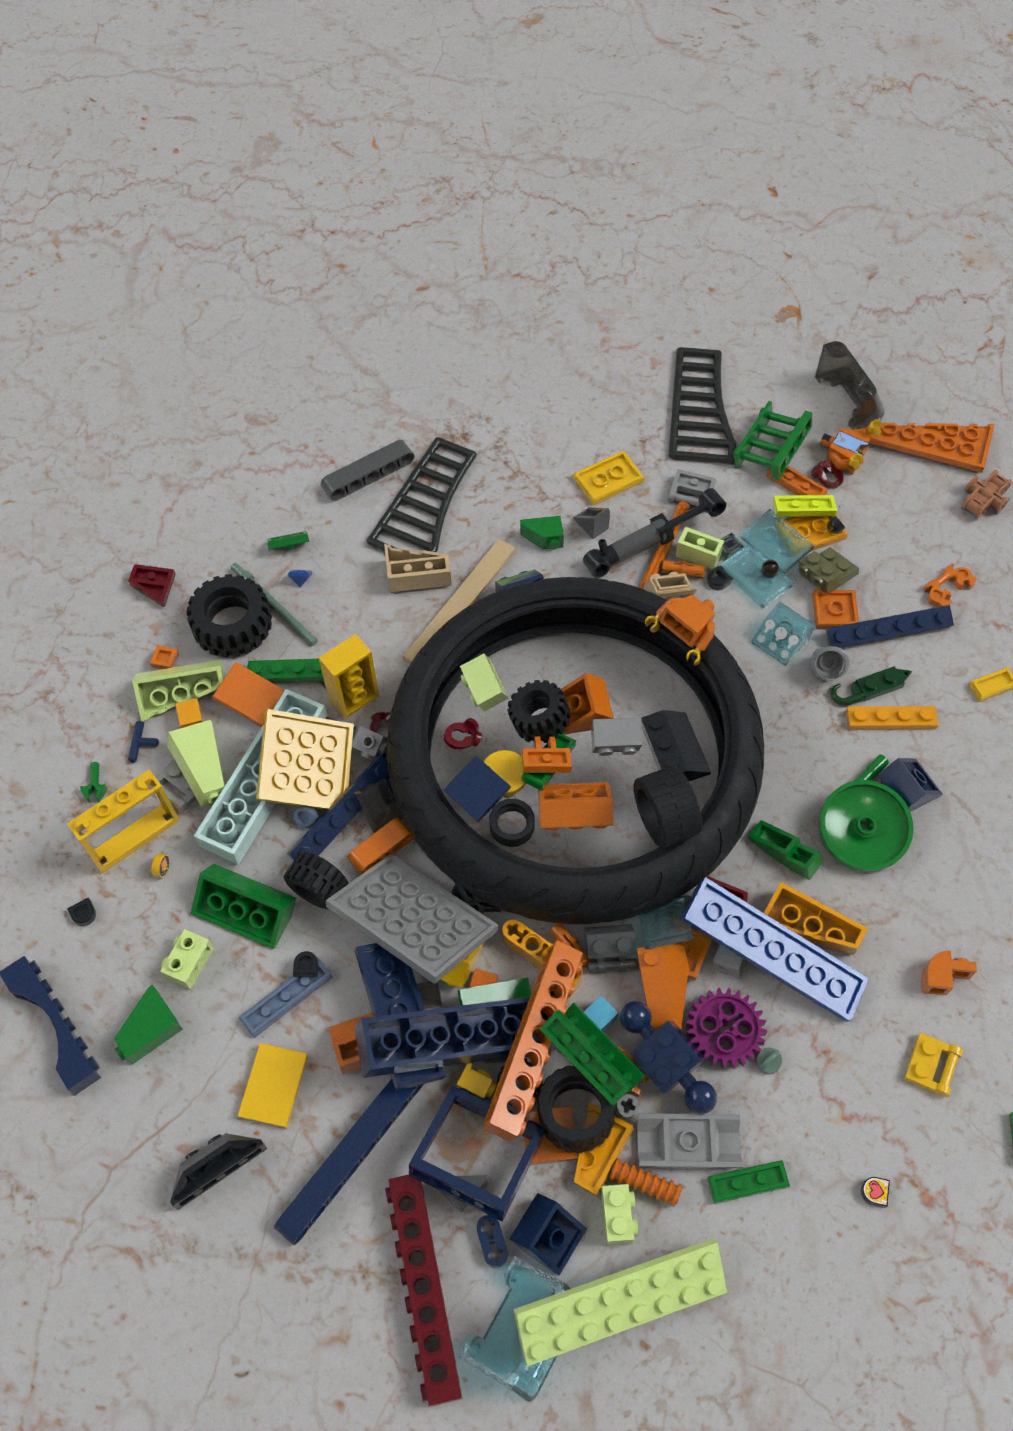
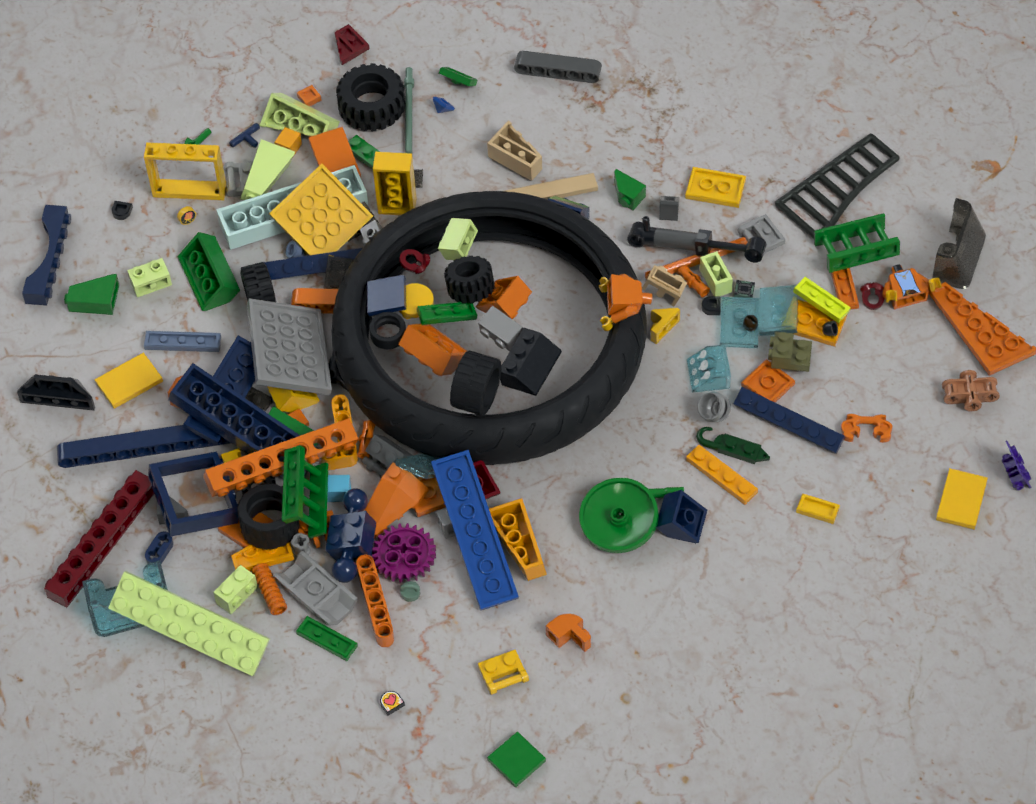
camera: 45 degrees right, 5 degrees down
(305, 965) = (208, 331): black tile -> none
(412, 483) = (562, 101): pearl dark grey bar -> none
(546, 759) = (440, 307): orange hinge -> none
(548, 1233) = (190, 569): dark blue slope -> none
(766, 1100) = (378, 608): none -> orange beam
(786, 849) = (556, 492): green slope -> none

